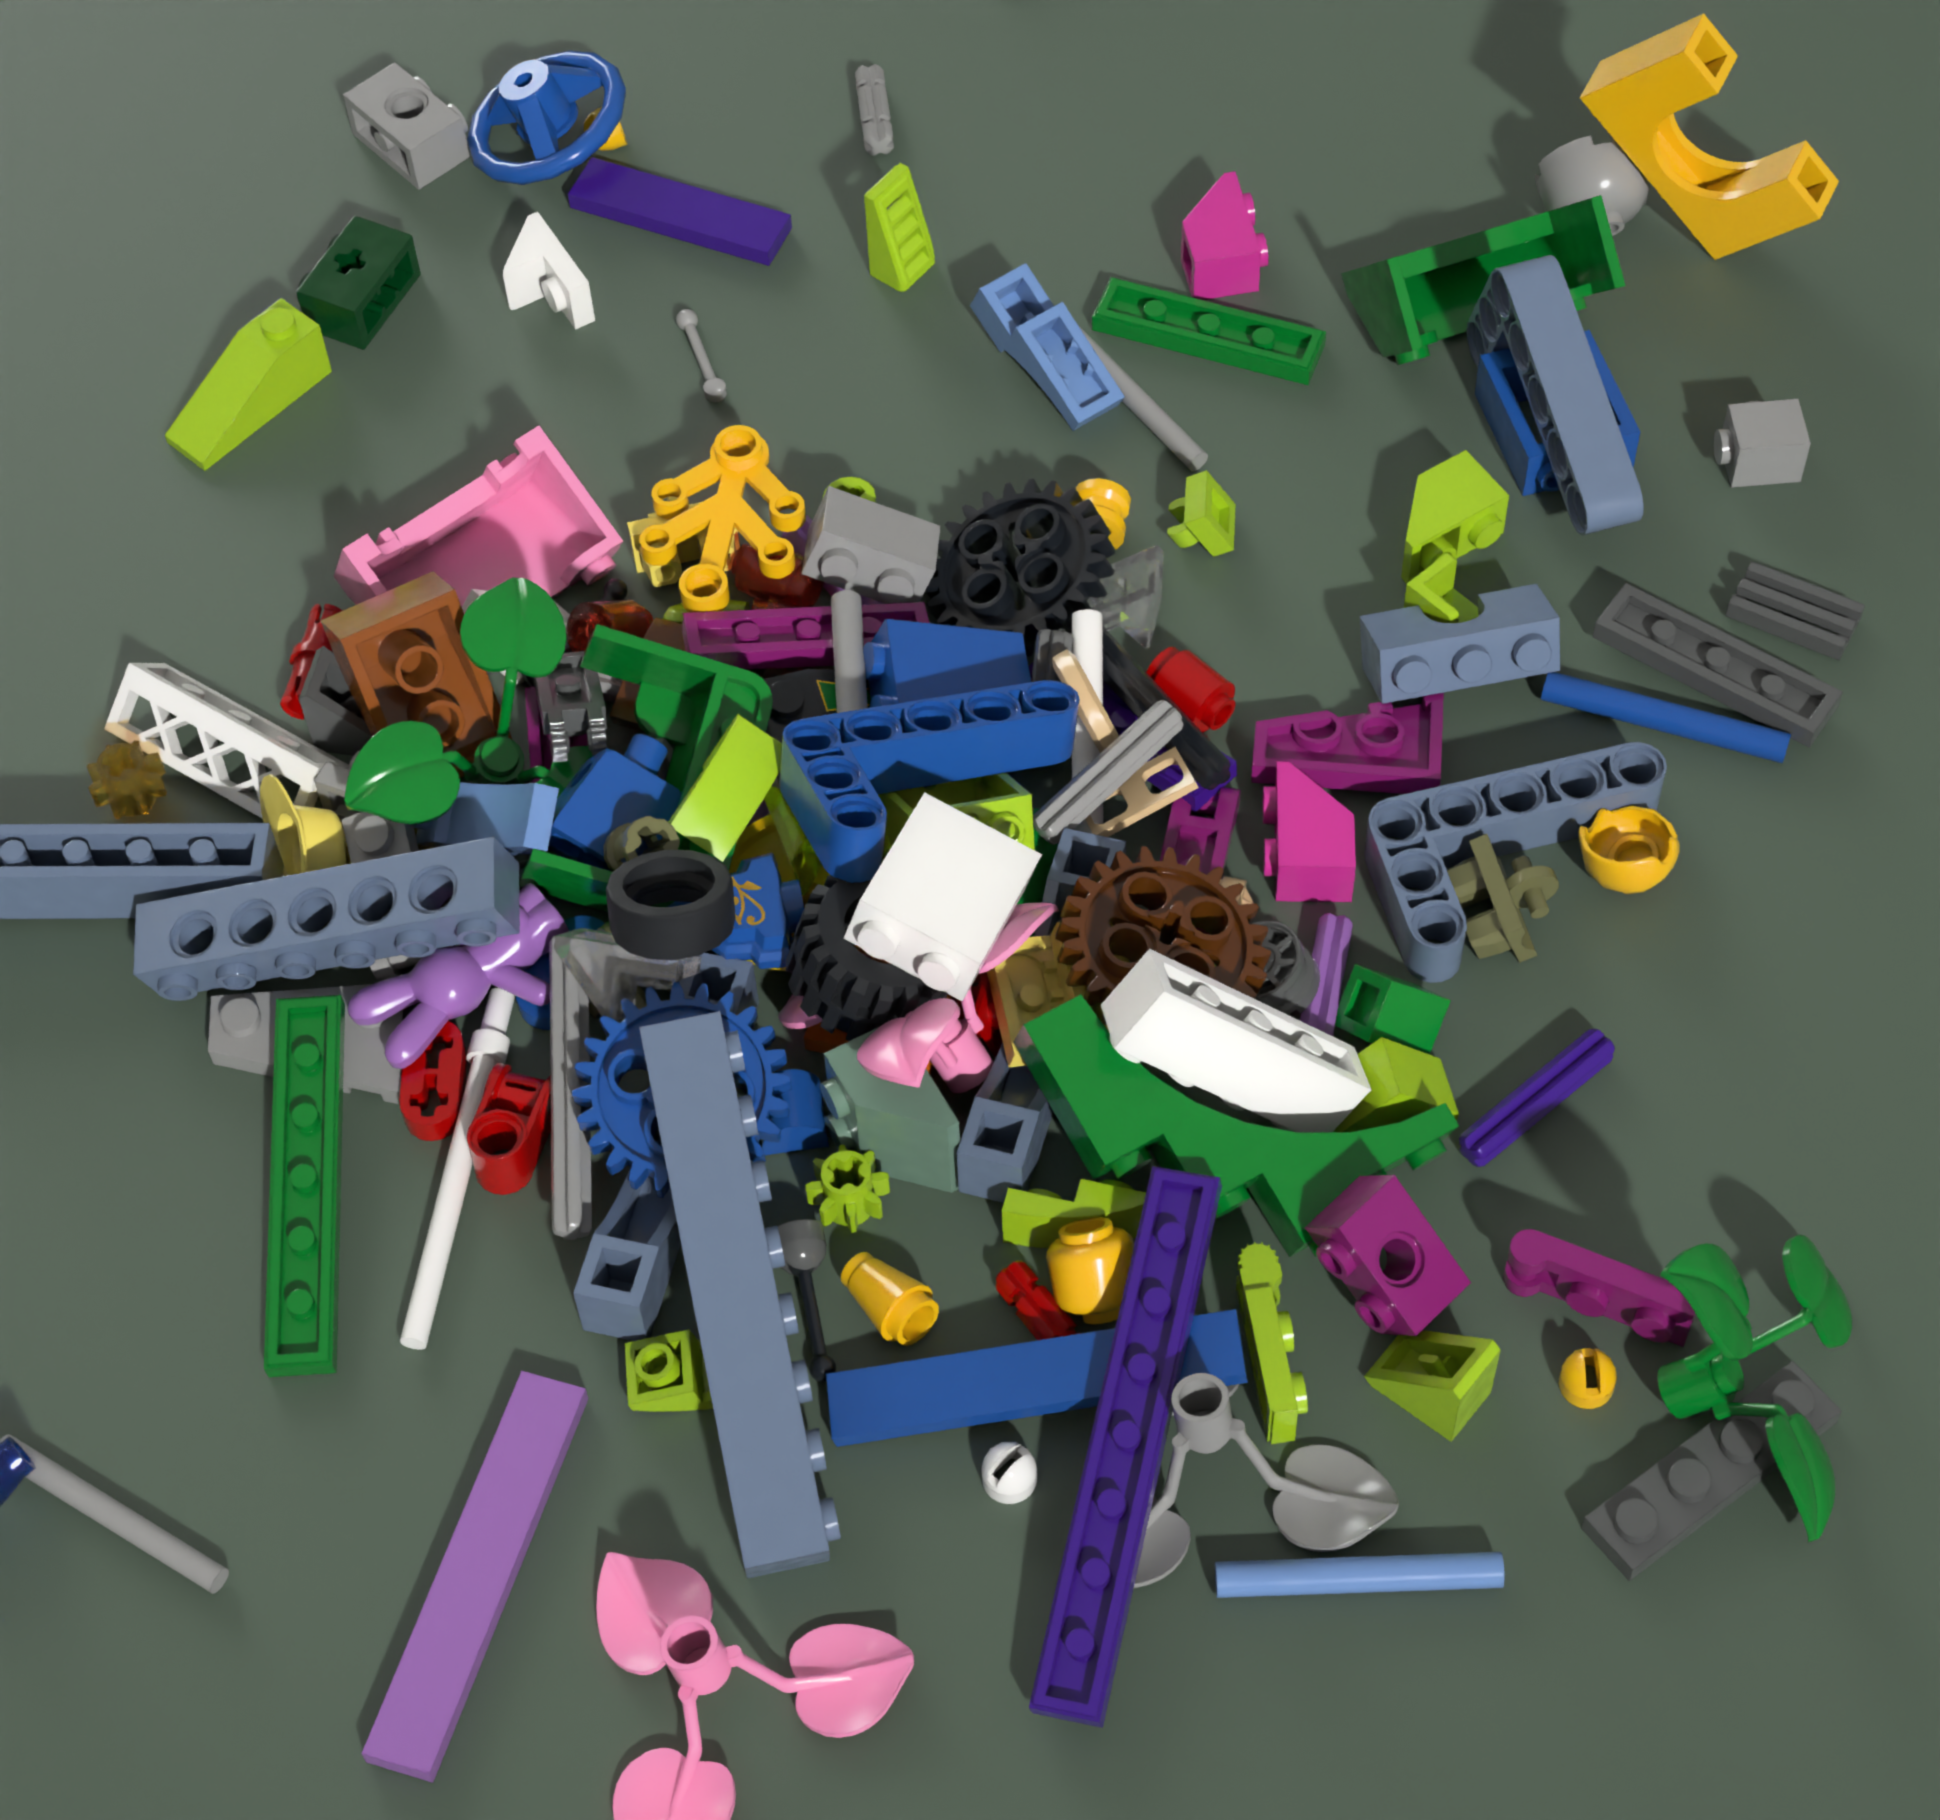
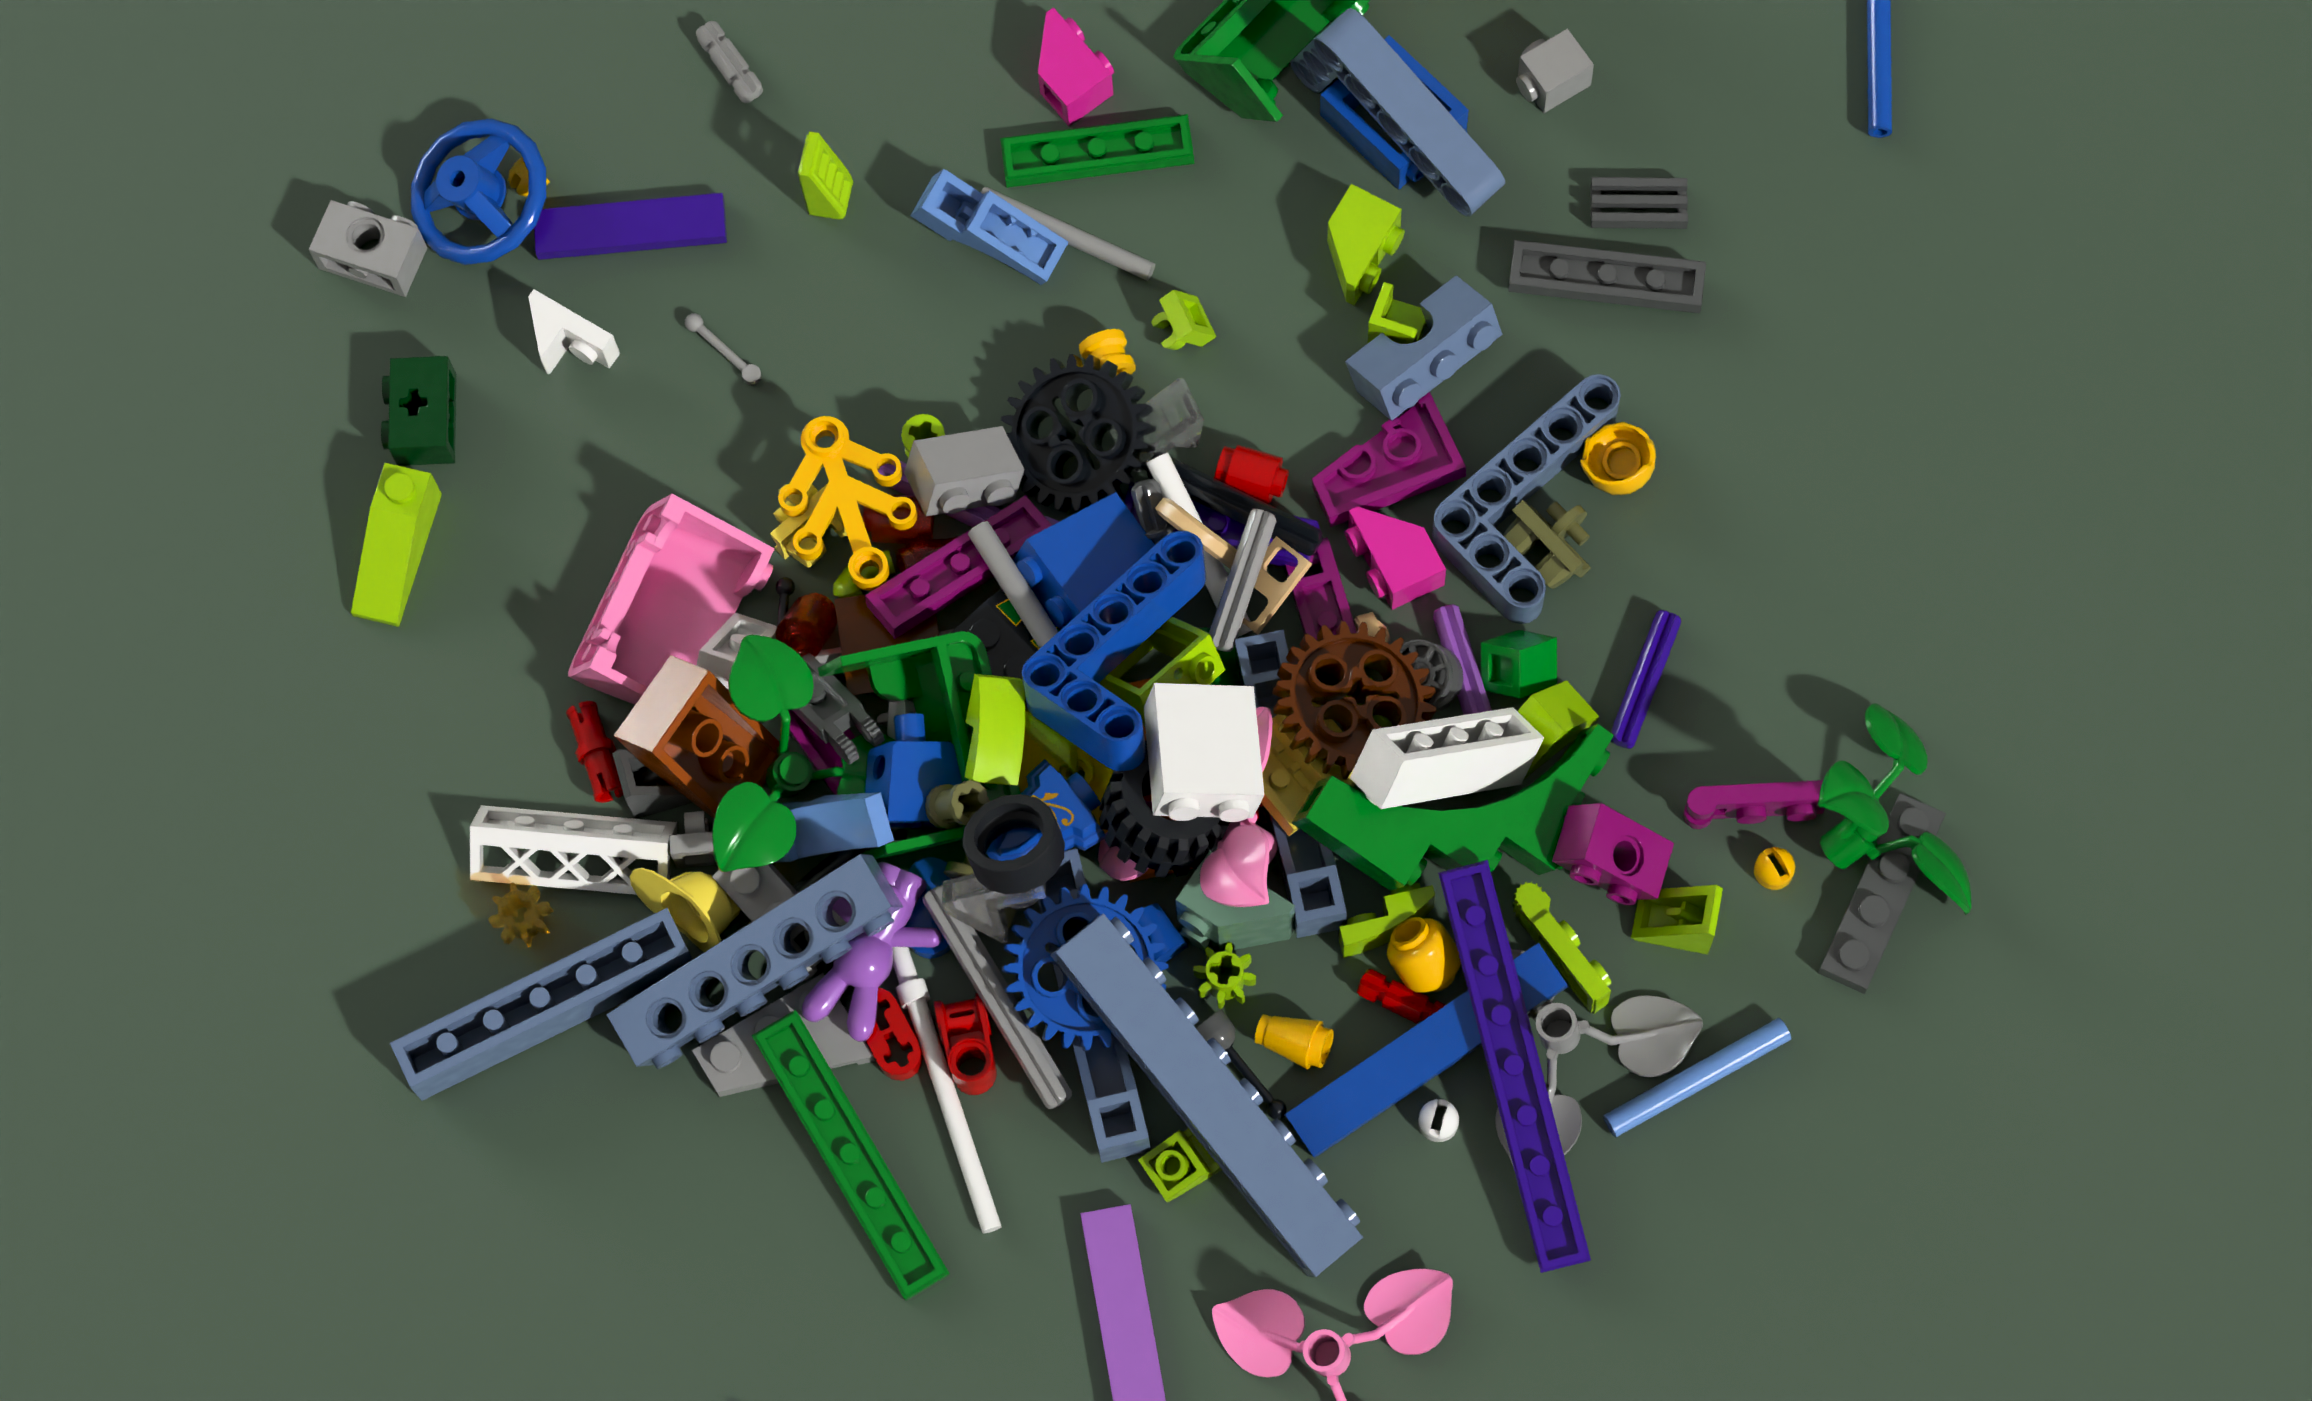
camera: 25 degrees left, 15 degrees up
(1666, 716) = (1590, 335): blue piece -> none

